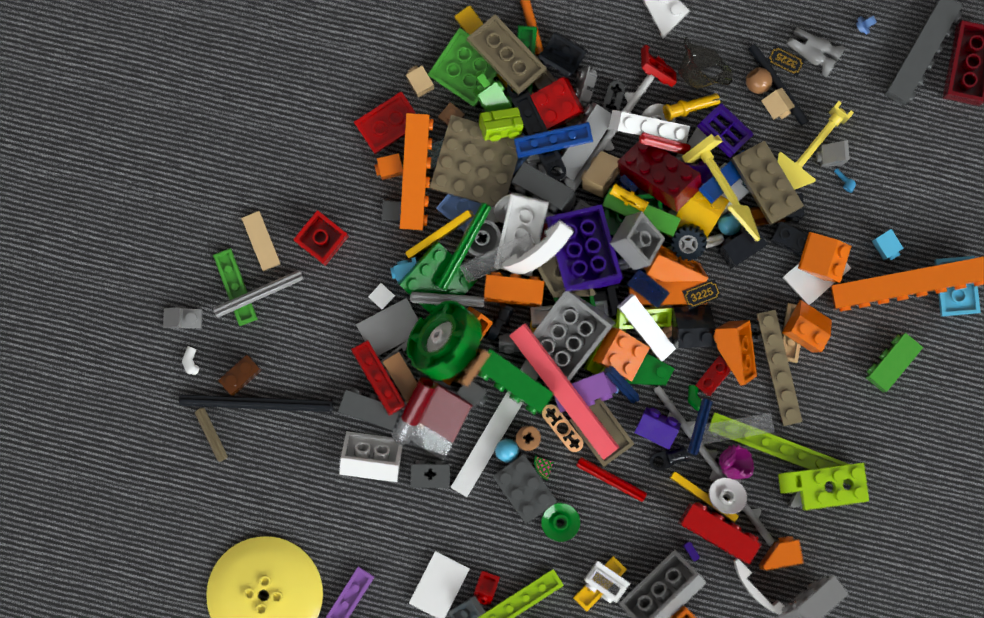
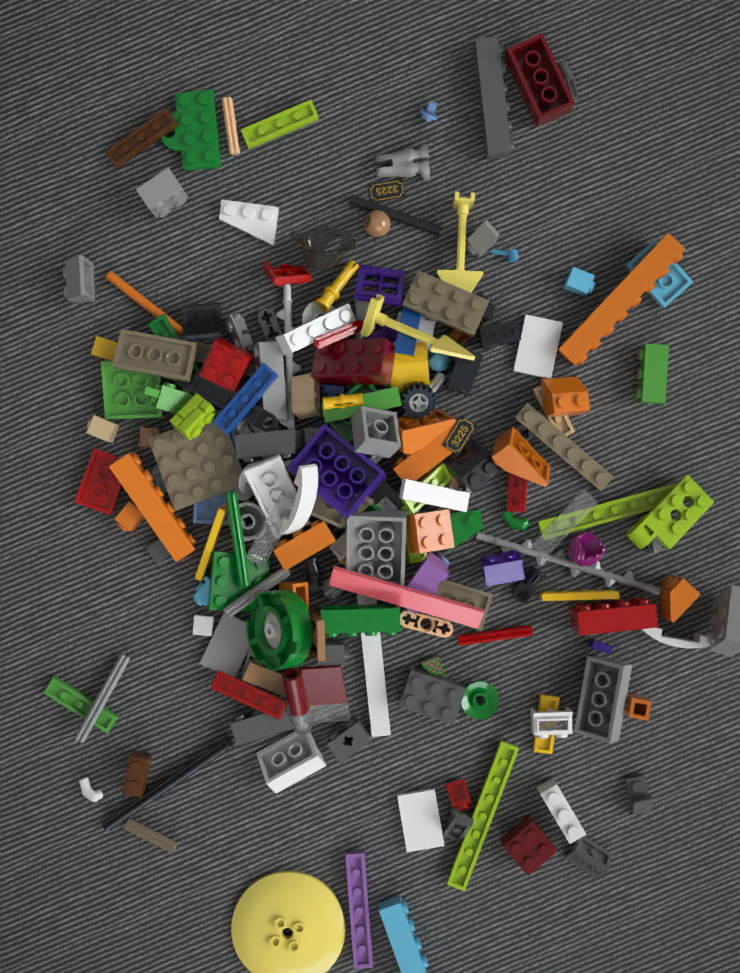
camera: 35 degrees left, 5 degrees up
(182, 318) = (58, 760): light grey slope -> none
(261, 241) = (73, 652): tan tile -> none
(321, 238) = (118, 616): red brick -> none
(507, 450) = (395, 675): medium azure piece -> none
(534, 434) = (405, 662): medium nougat piece -> none
(626, 389) = (448, 556): dark blue axle -> none
(648, 288) = (413, 464): clear blue plate -> none
(699, 427) = (536, 543): dark blue axle -> none
(732, 490) = (601, 574): white dish -> none
(778, 104) = (407, 231): tan brick -> none
(824, 257) = (537, 330): orange slope -> none

